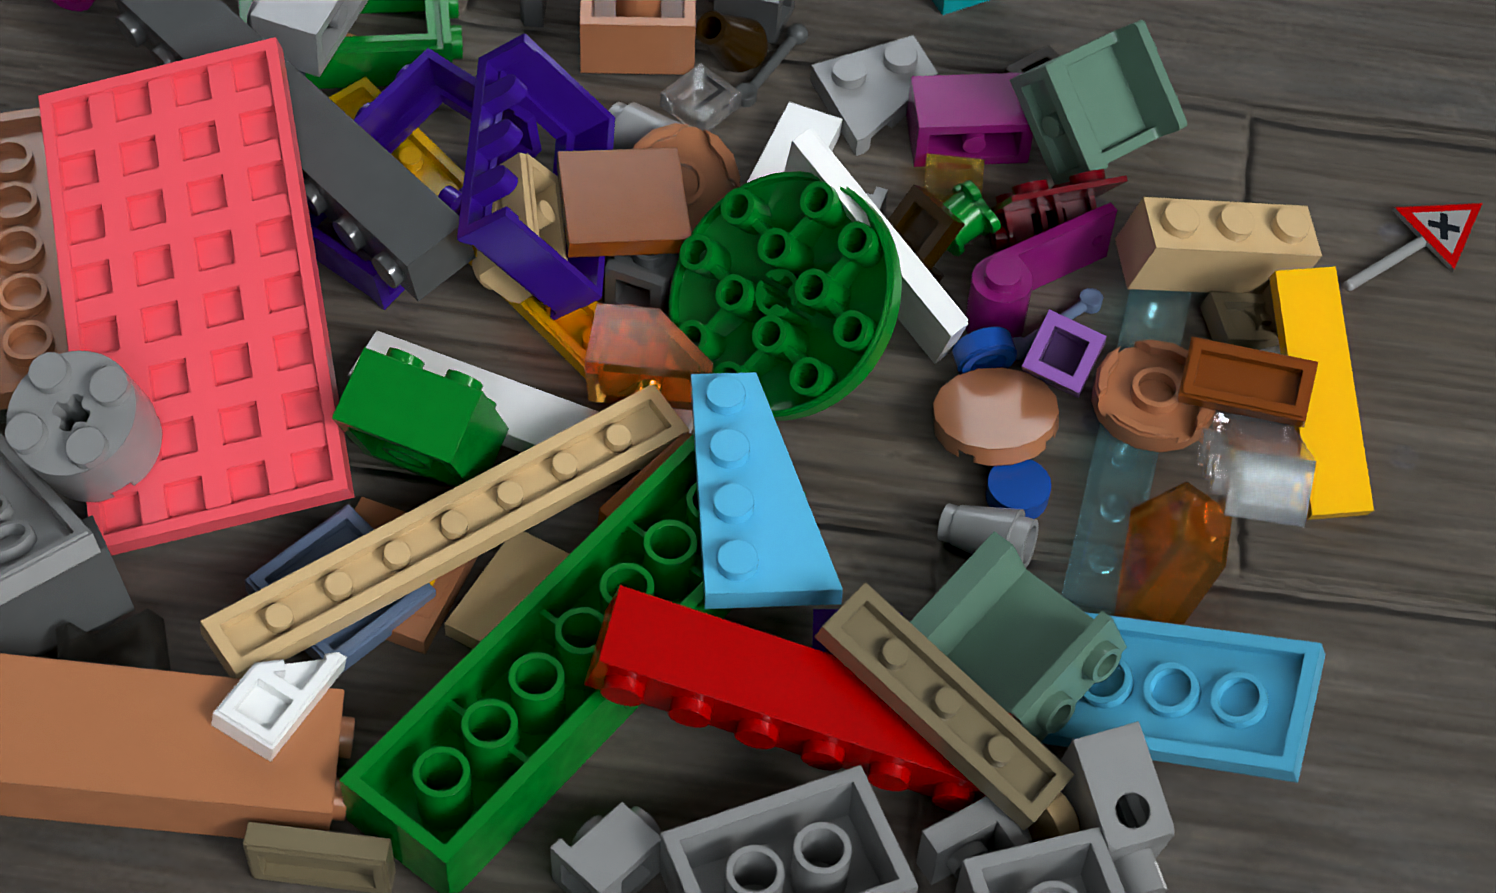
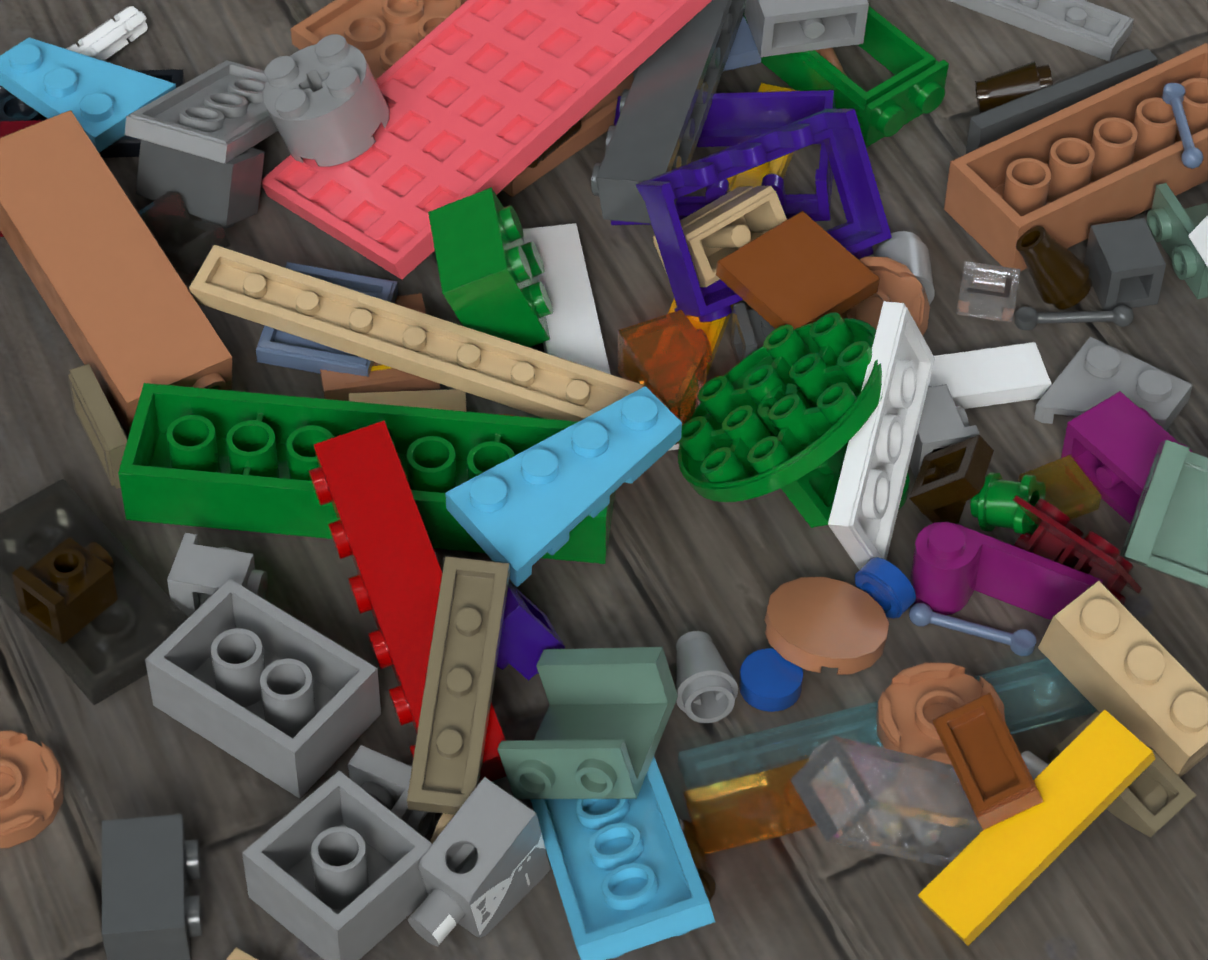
camera: 60 degrees right, 5 degrees down
(275, 701) = (186, 320): white tile -> none
(1064, 353) = (916, 627): medium lavender brick -> none

